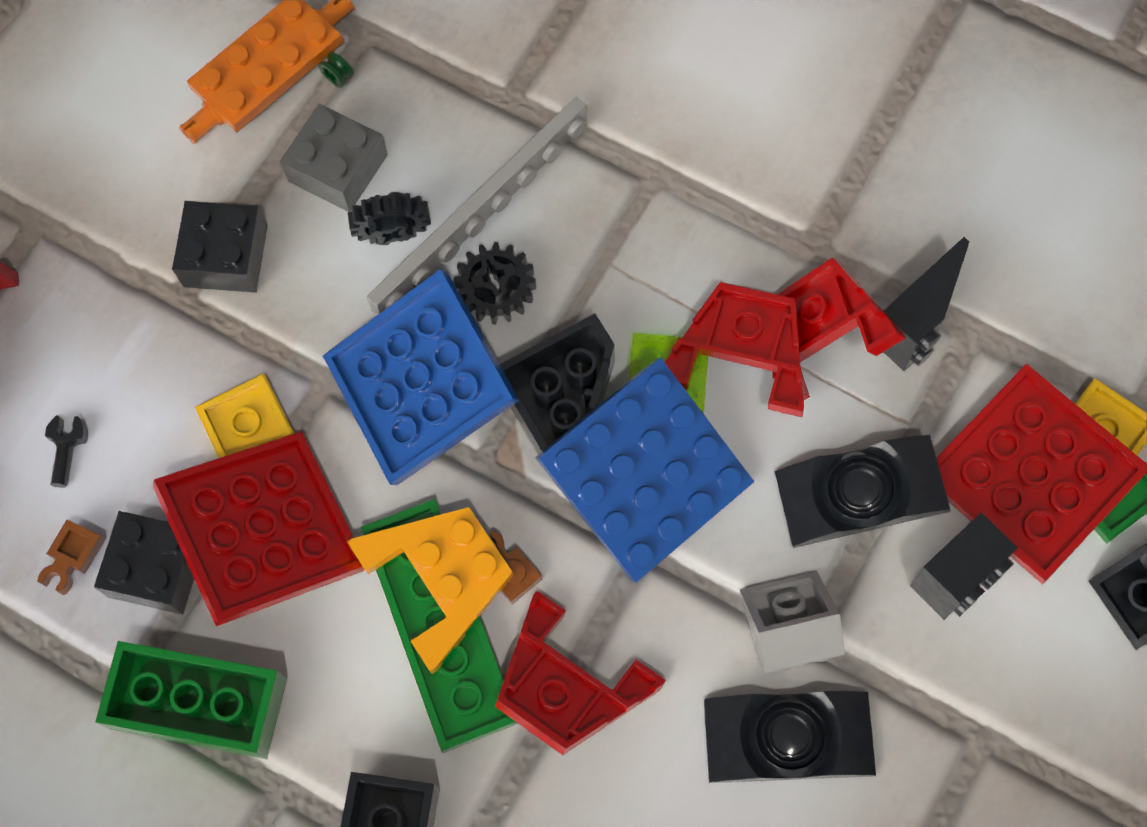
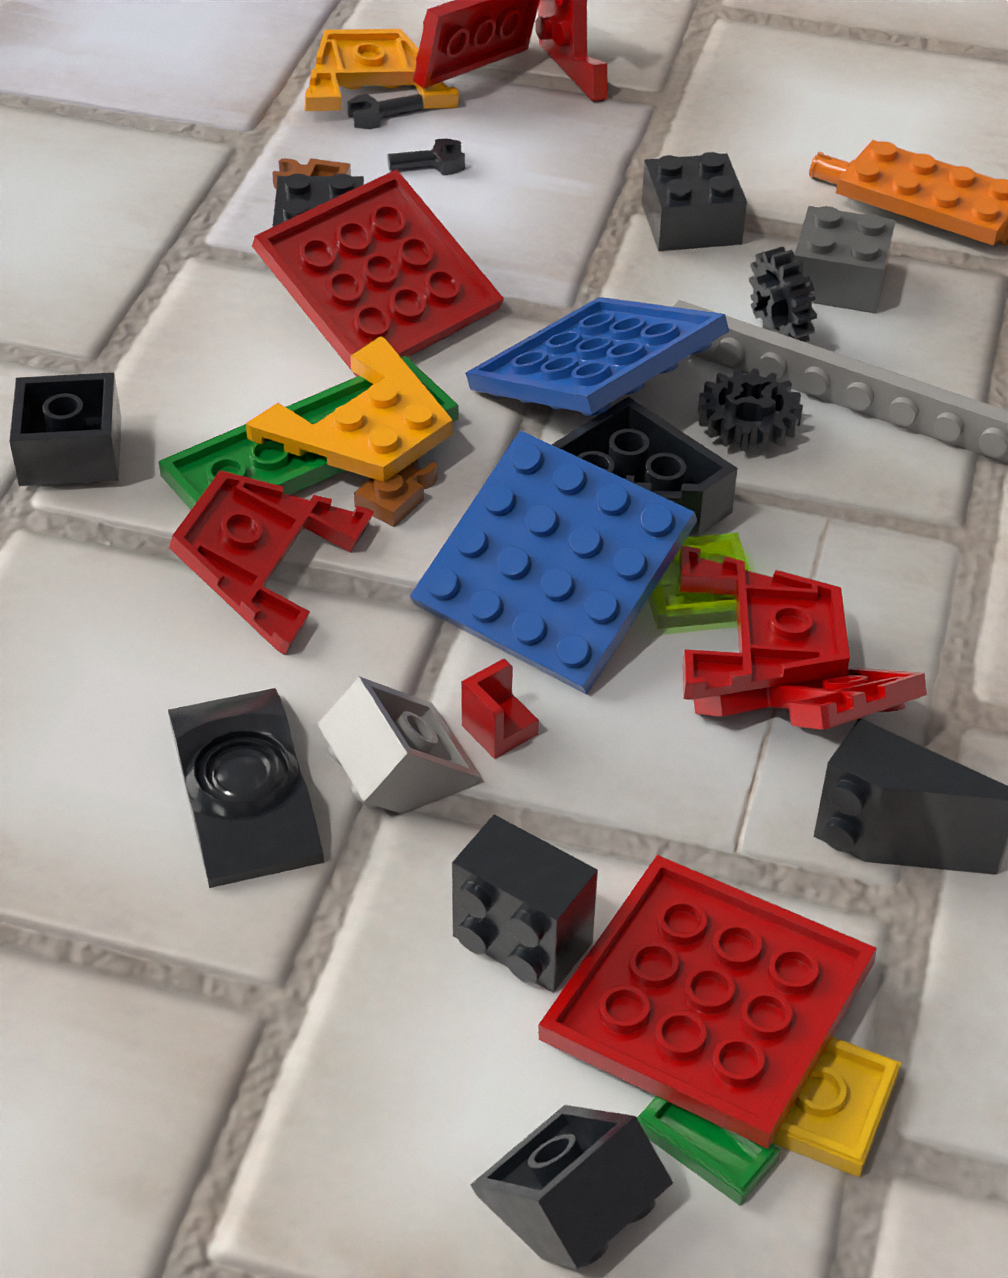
camera: 70 degrees right, 25 degrees down
(191, 699) = (176, 273): green brick -> none
(244, 417) = (513, 264): yellow tile -> none
(336, 69) = (954, 245): dark green bush -> none
(770, 545) = (493, 712): none -> red panel
(861, 490) = (612, 798): black slope -> none

